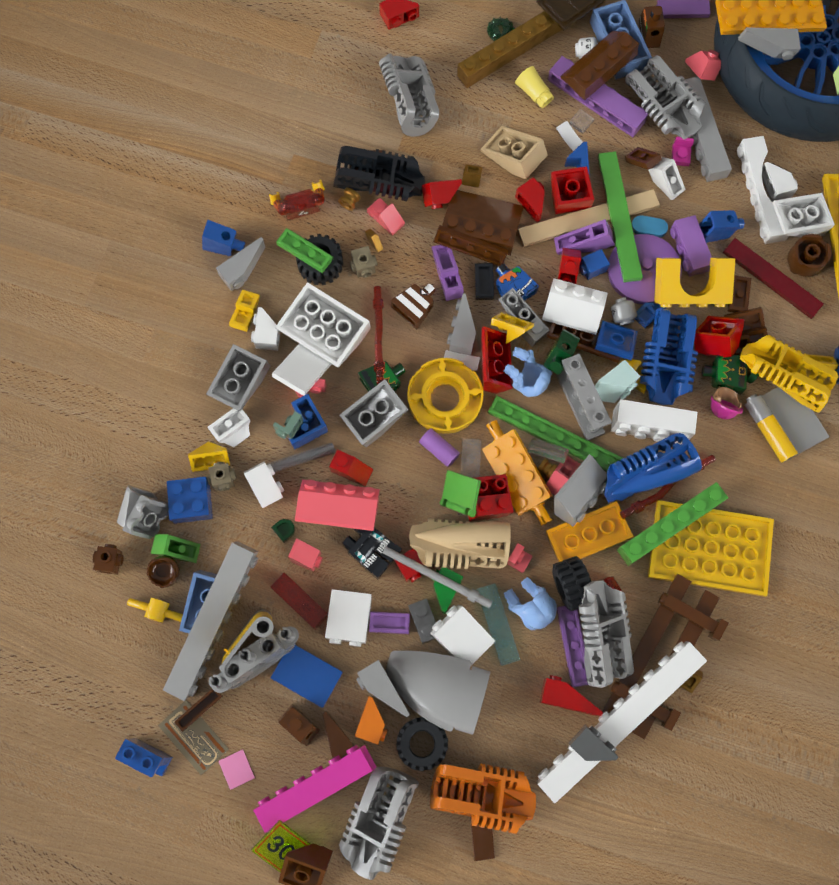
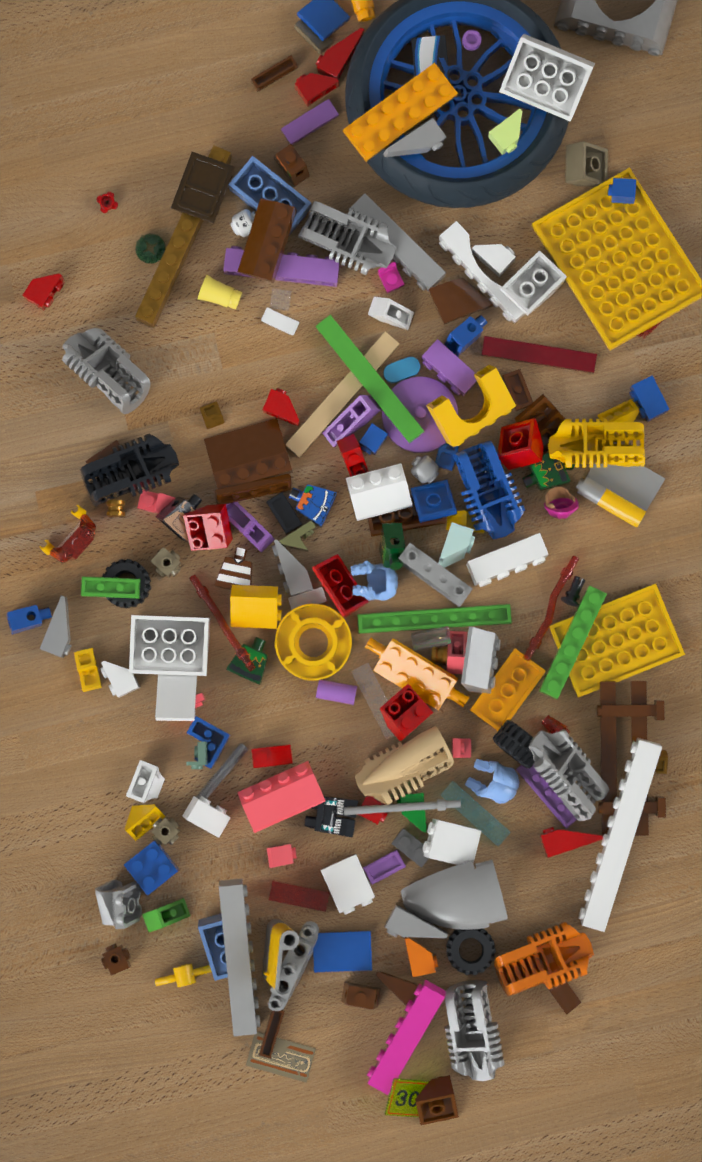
camera: 25 degrees left, 10 degrees up
(143, 757) = (254, 1097): blue panel -> none
(163, 571) = (169, 941): reddish brown hair -> none
(236, 769) = (332, 1060): bright pink sticker -> none
(238, 378) = (125, 737): light grey slope -> none
(284, 529) = (247, 842): dark green tile -> none
(374, 240) = (161, 533): pearl gold tile -> none
(374, 413) = (263, 698): light grey slope -> none
(398, 233) = (173, 514): none -> torso
(414, 336) = (255, 606): none -> yellow brick
(415, 253) = (208, 527): none -> red slope
(439, 193) = (195, 453): red slope -> none
(460, 493) = (379, 724): bright green piece -> none
(480, 304) = (294, 539): none -> olive slope
(513, 325) = (335, 546): yellow slope -> none
(515, 151) = (237, 369): tan slope -> none
(517, 307) = (340, 530): light grey slope -> none
(571, 190) = (312, 380): red slope -> none
(578, 157) = (301, 340): blue slope -> none
(591, 747) = (607, 871): dark grey slope -> none
(643, 158) = (359, 308): reddish brown plate -> none
(651, 468) = (525, 606): blue connector -> none
(693, 486) = (574, 591): none -> black pin
(705, 64) = (364, 180): coral slope -> none
(728, 195) = (458, 299): none -> reddish brown slope
(809, 255) = (561, 306): reddish brown brick -> none

